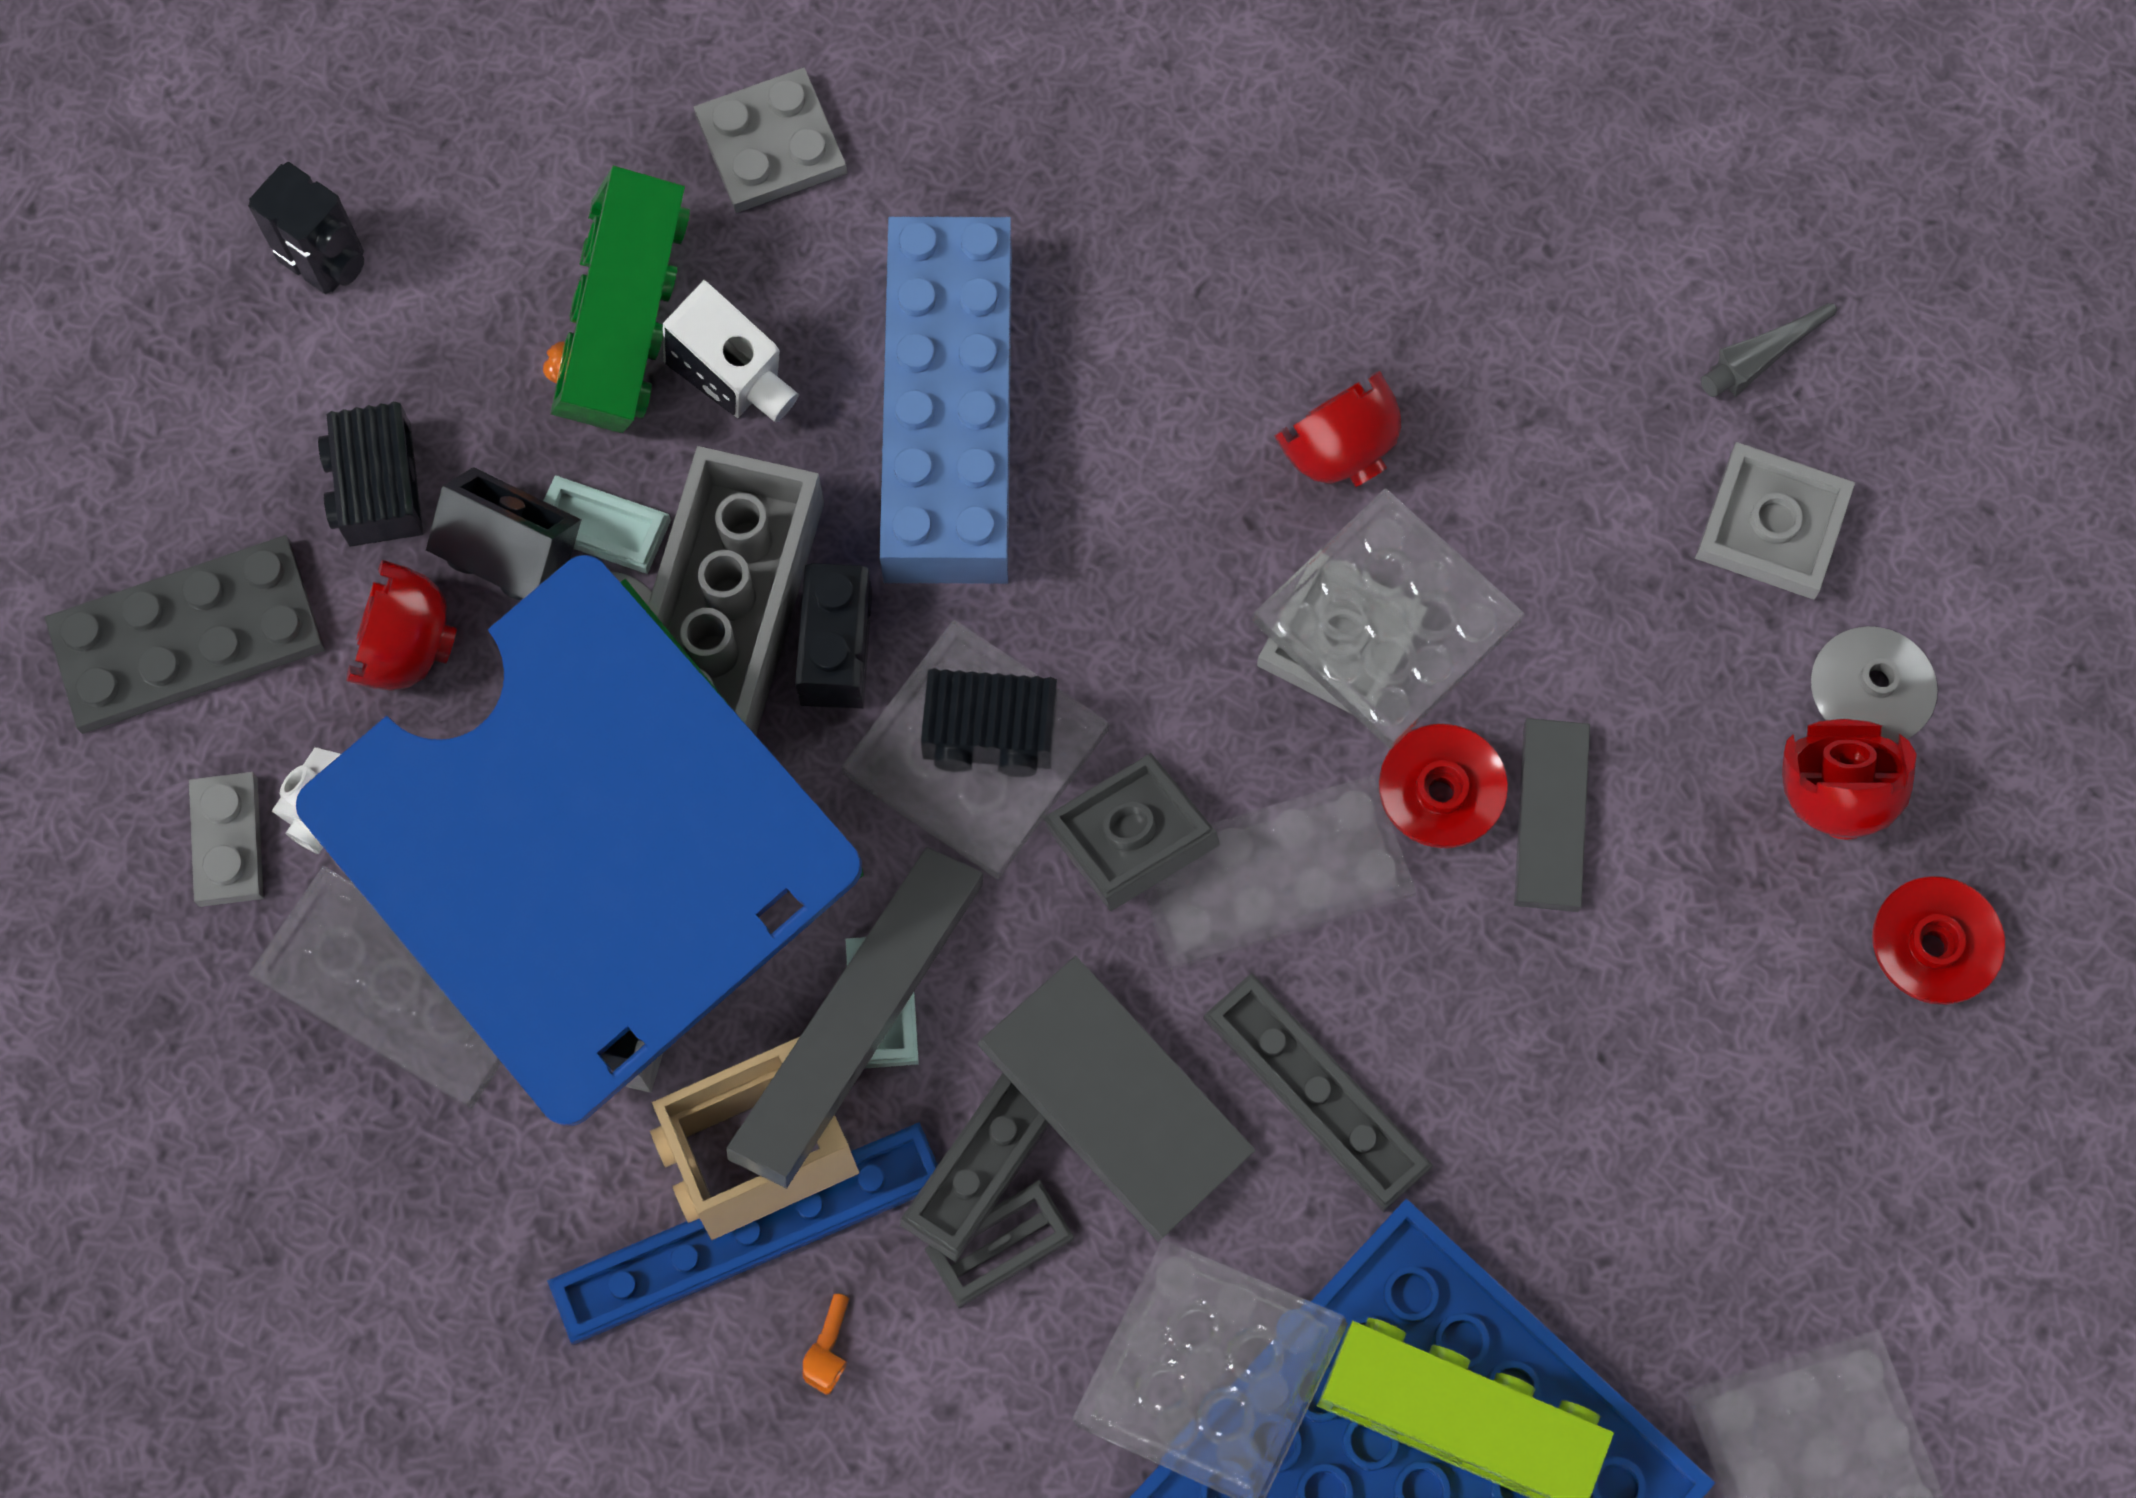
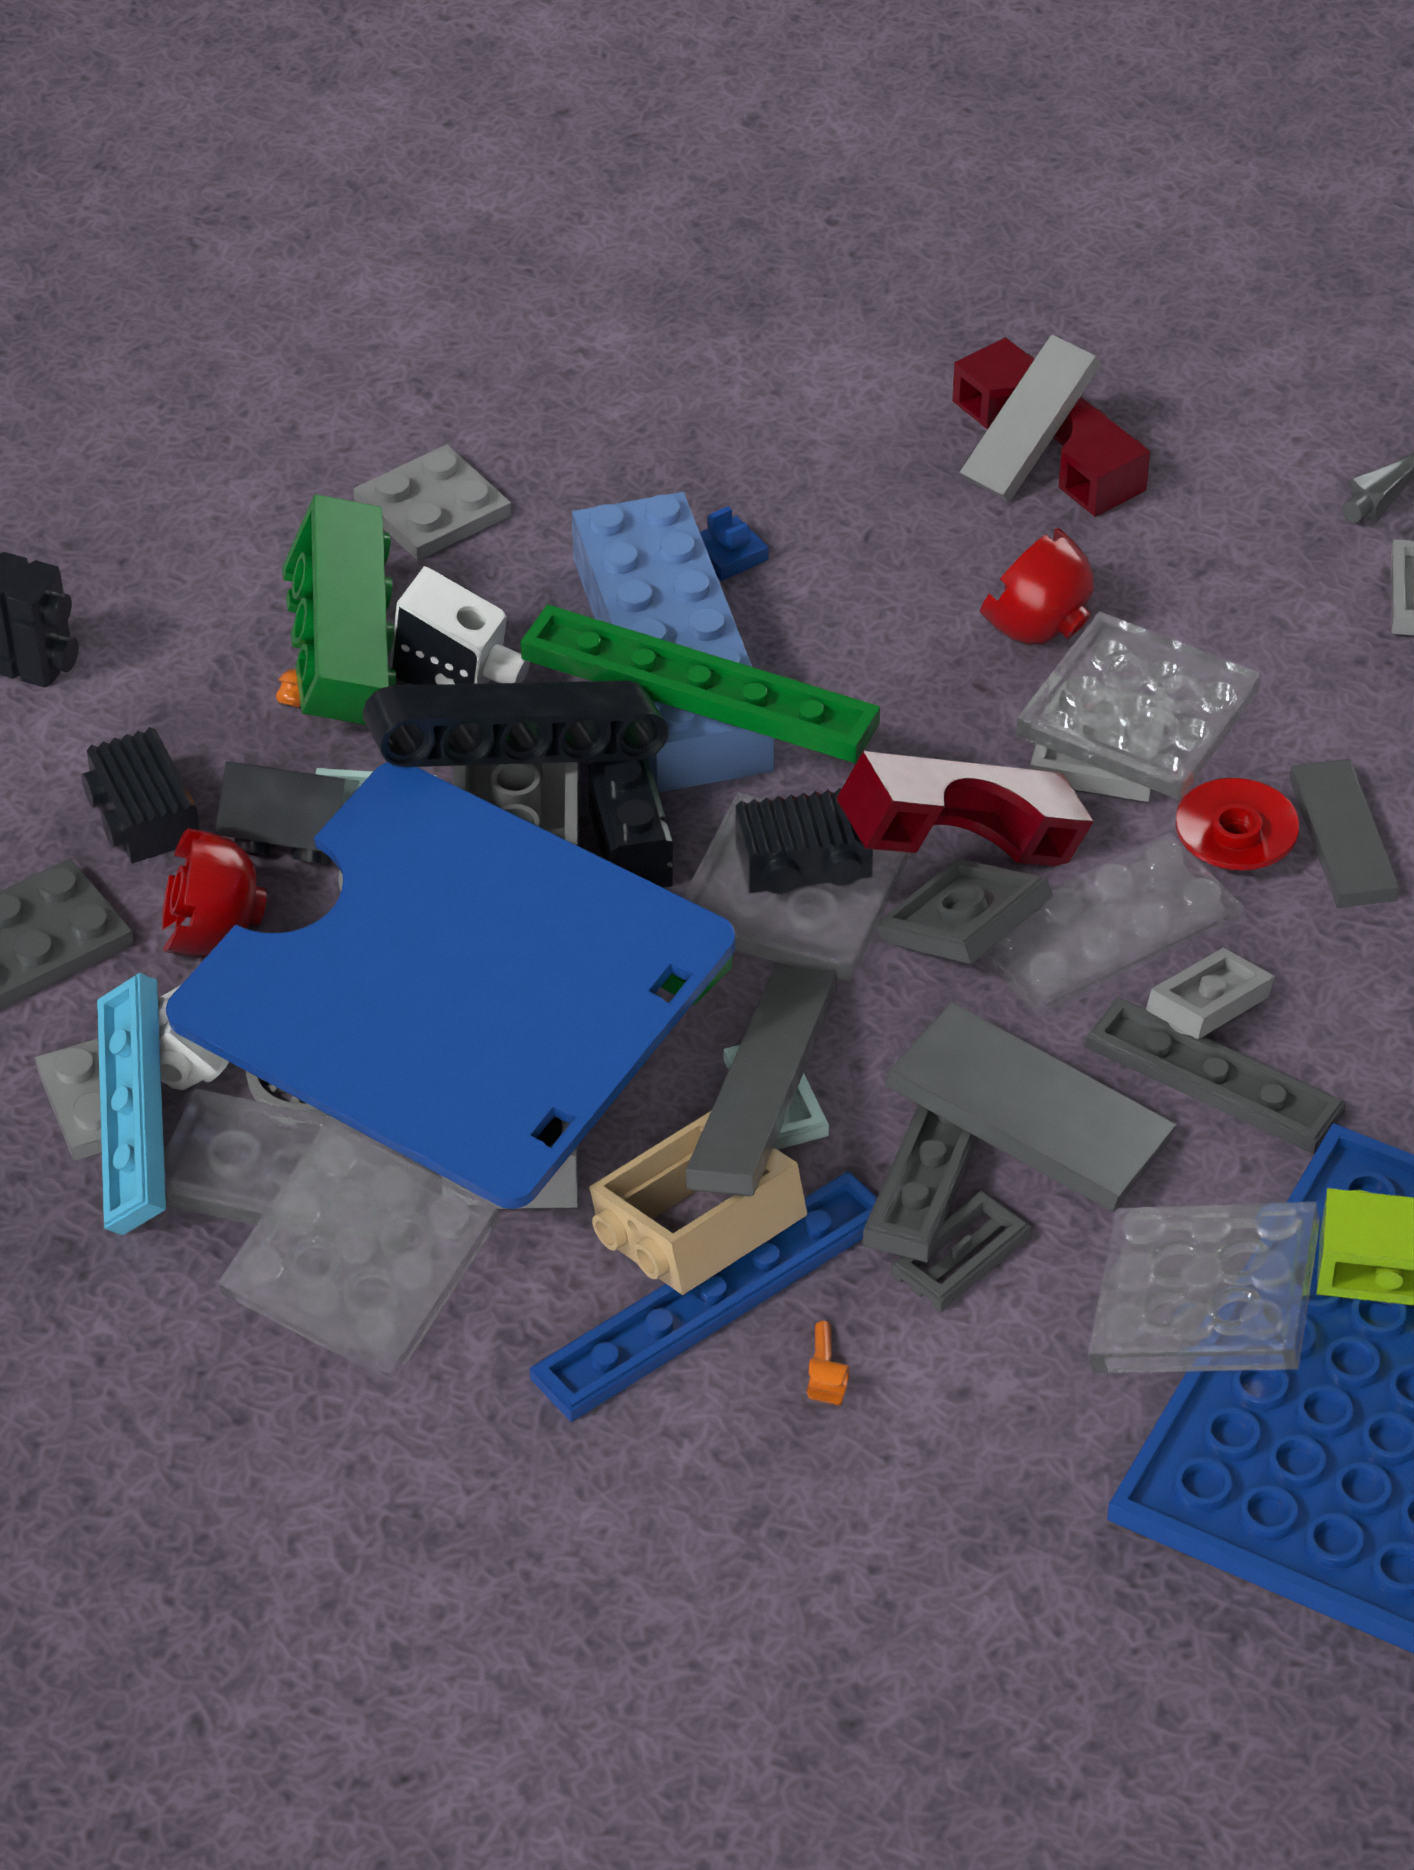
camera: 15 degrees left, 25 degrees down
(250, 880) = (131, 1105): none -> medium azure tile
(417, 1112) = (359, 1251): none -> clear plate
(724, 531) = (514, 723): none -> black beam
(936, 507) = (702, 683): none -> green plate
(1050, 275) = (732, 544): none -> blue tile
(1227, 726) = (1020, 810): none -> dark red arch
(1340, 1002) = (1209, 993): none -> light grey plate
(1404, 132) = (1098, 458): none -> dark red arch
(1406, 191) = (1030, 418): none -> light grey tile

